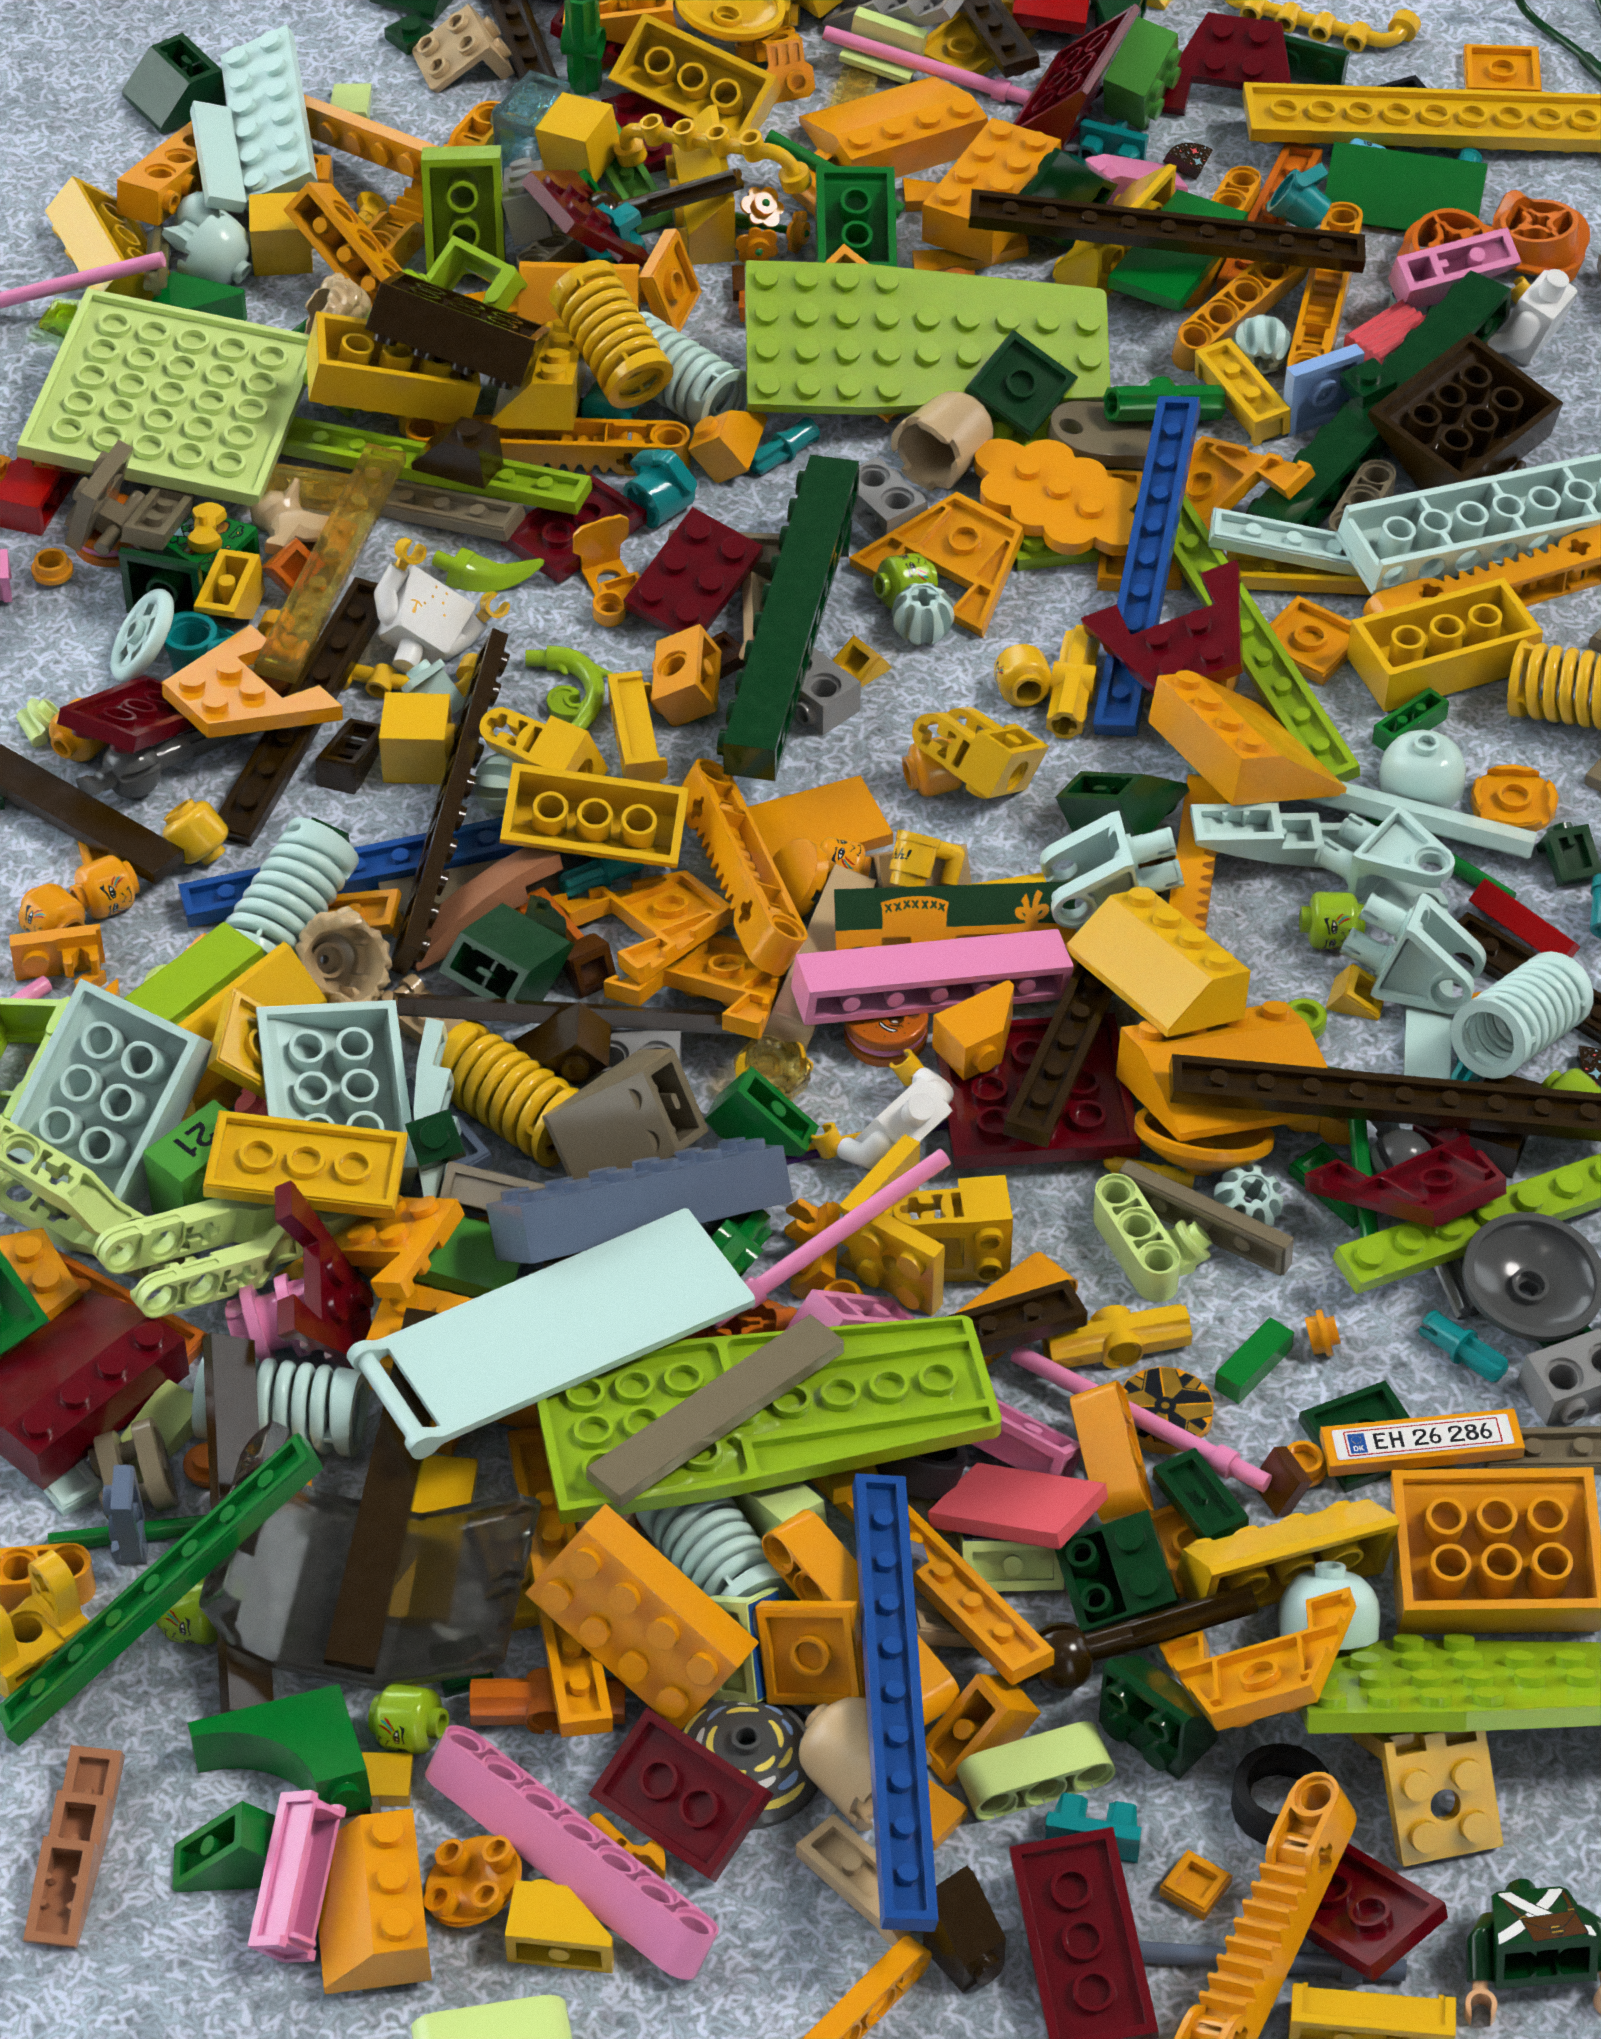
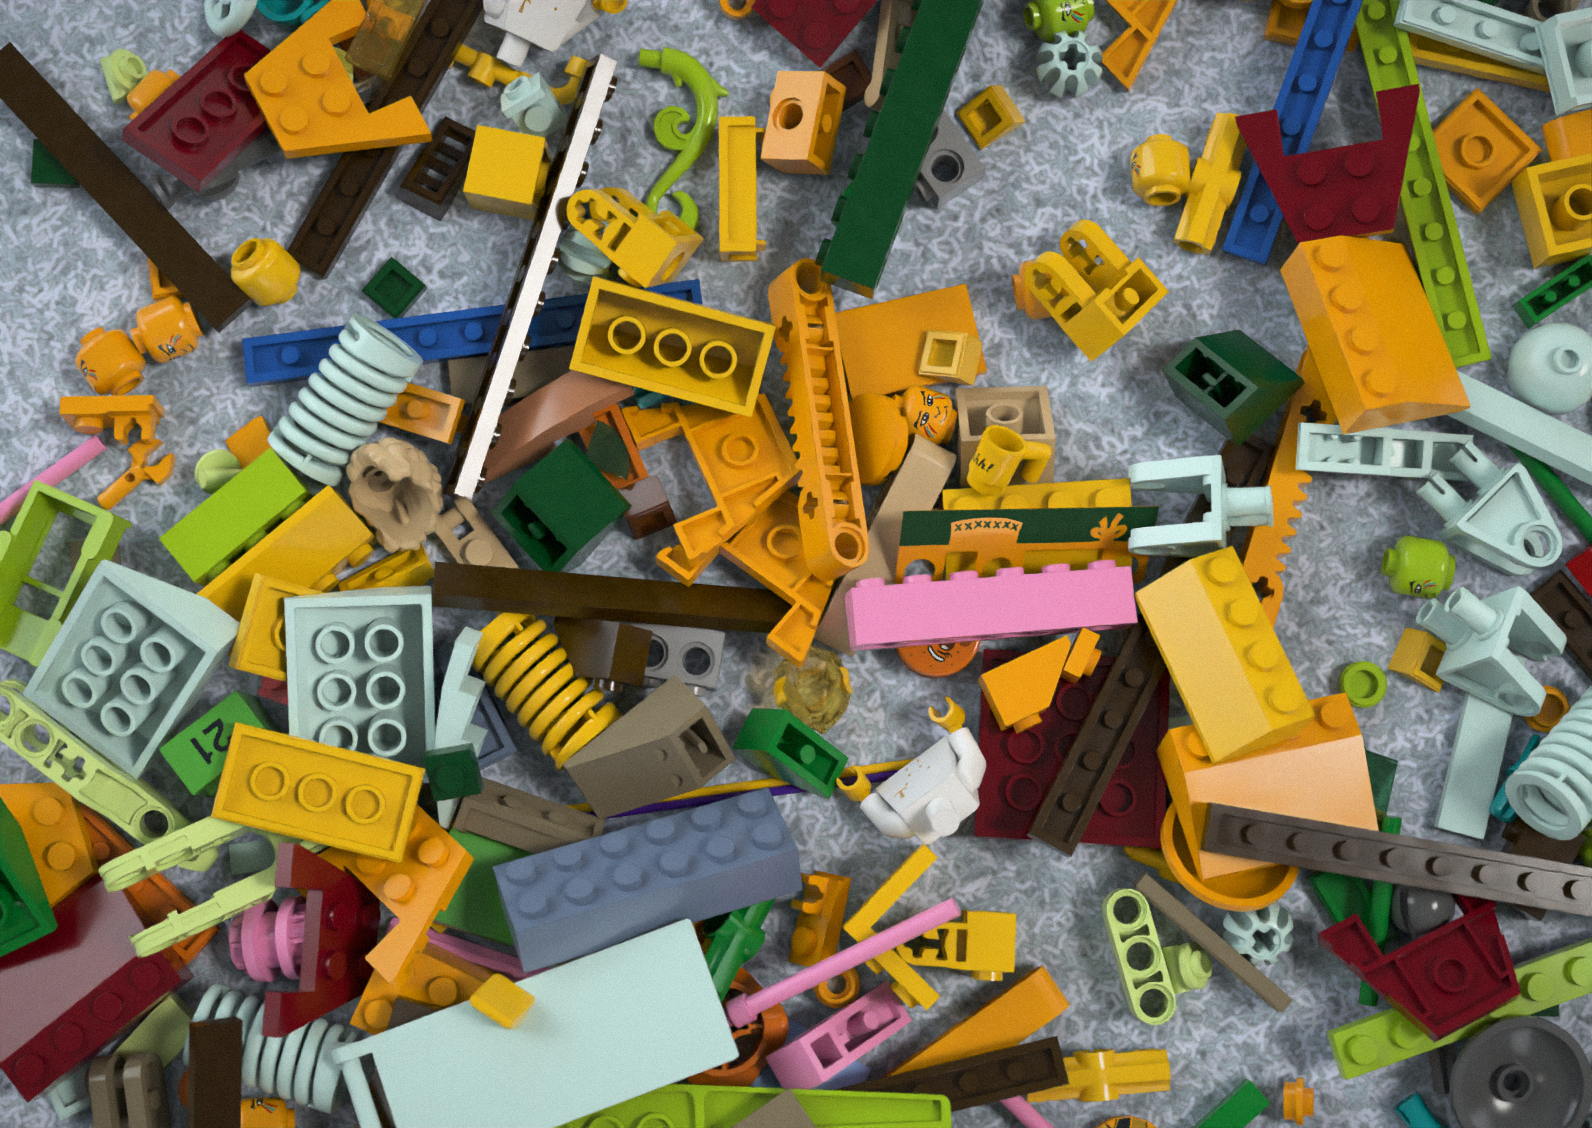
camera: 10 degrees right, 35 degrees up
(512, 1284) = (502, 1001): none -> yellow slope
(858, 821) = (951, 357): none -> yellow slope
(1026, 1005) = (1081, 656): none -> light orange plate

